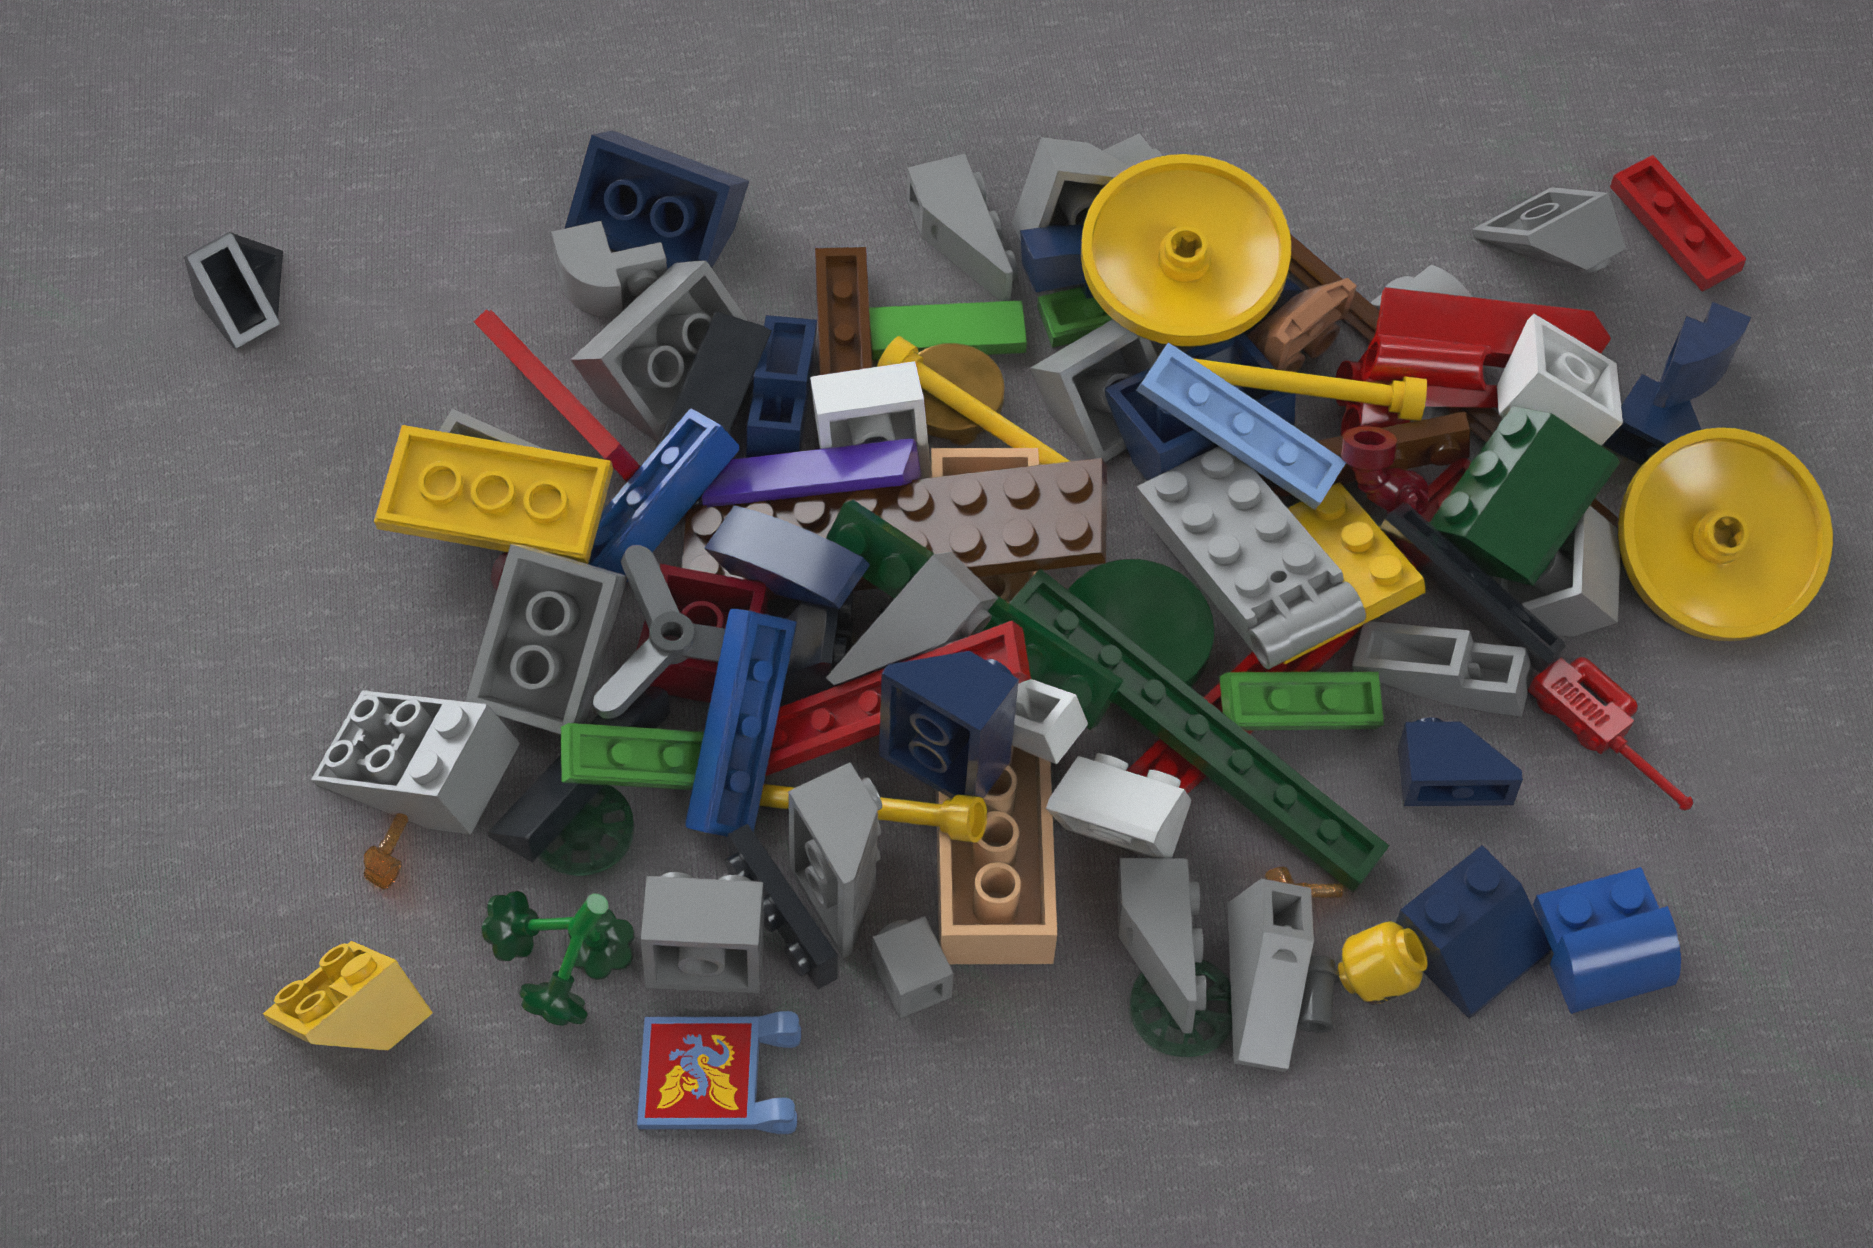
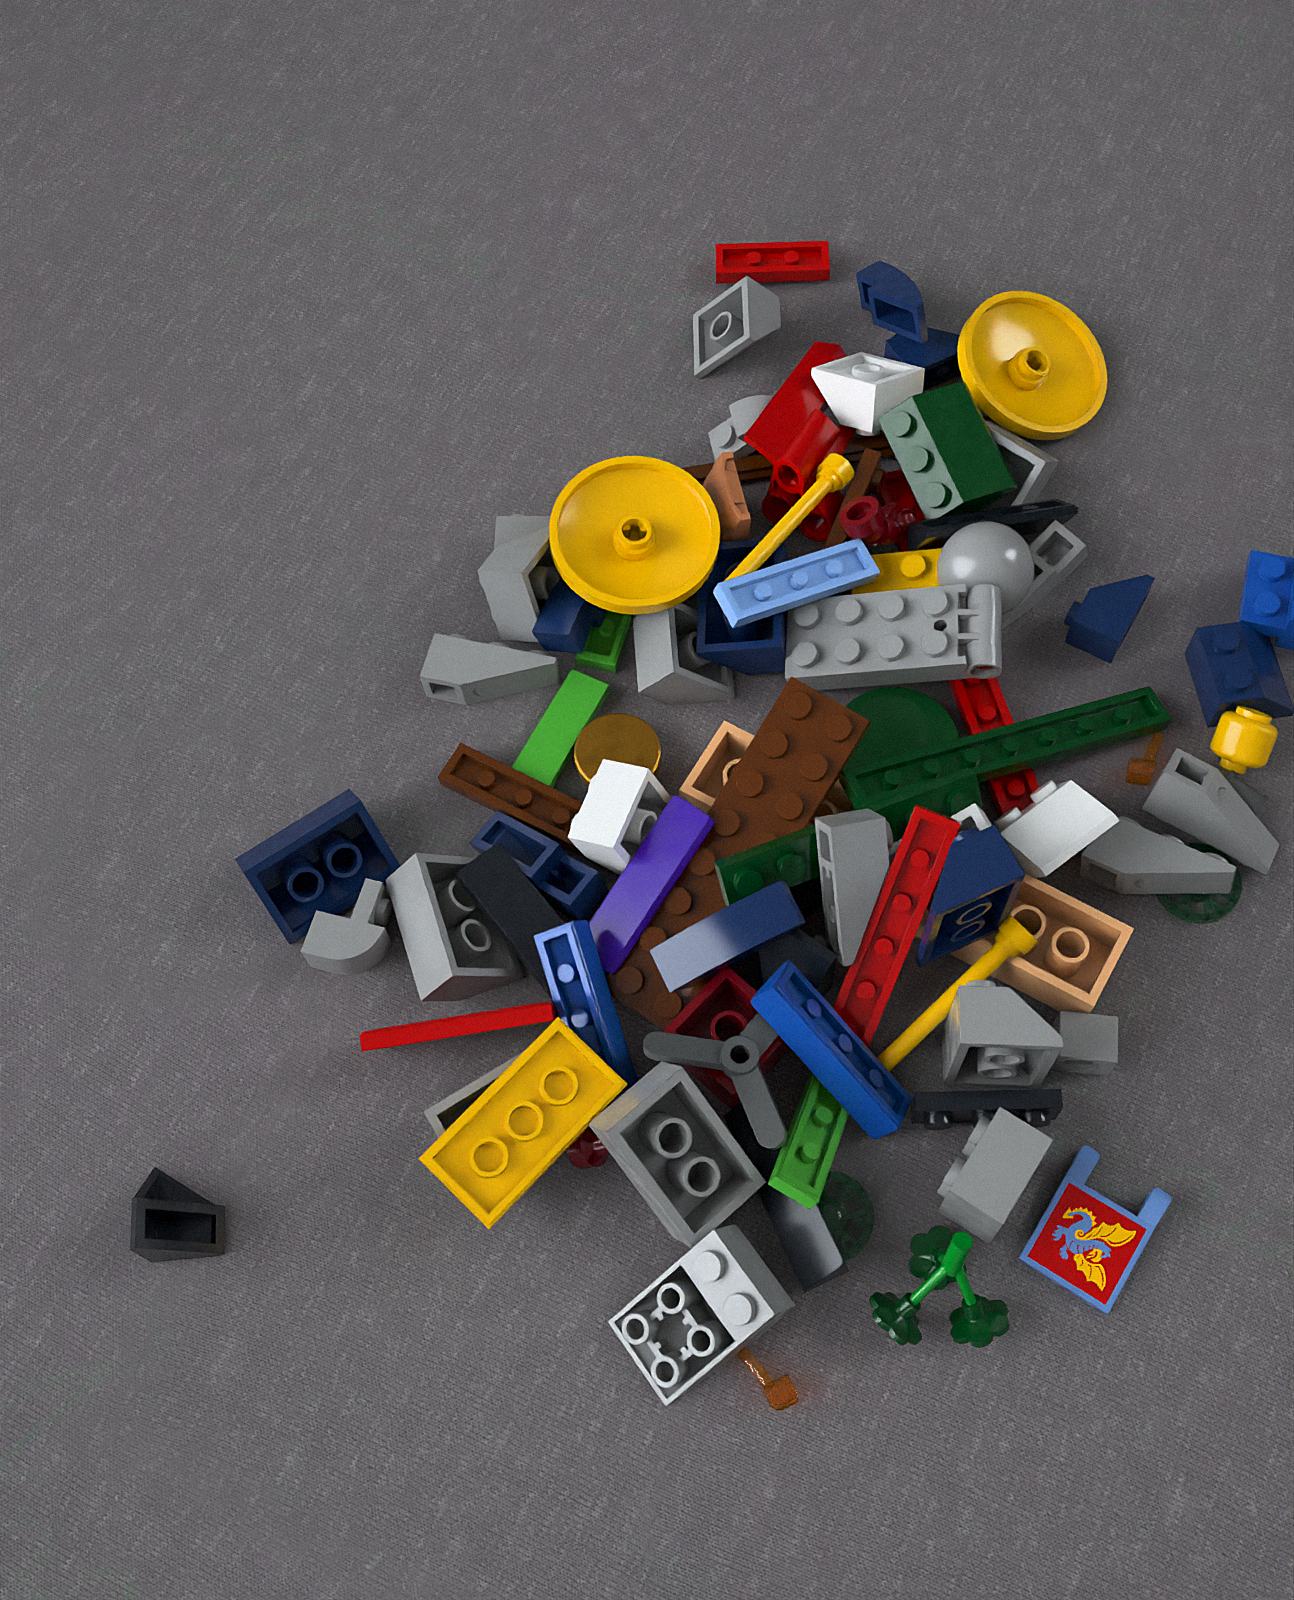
camera: 50 degrees left, 5 degrees up
(351, 1001) = (899, 1488): yellow slope -> none
(902, 351) = (582, 769): yellow piece -> none
(1302, 700) = (1005, 695): bright green tile -> none
(1406, 600) = (988, 555): none -> light grey piece
(1596, 725) = (1119, 517): red piece -> none

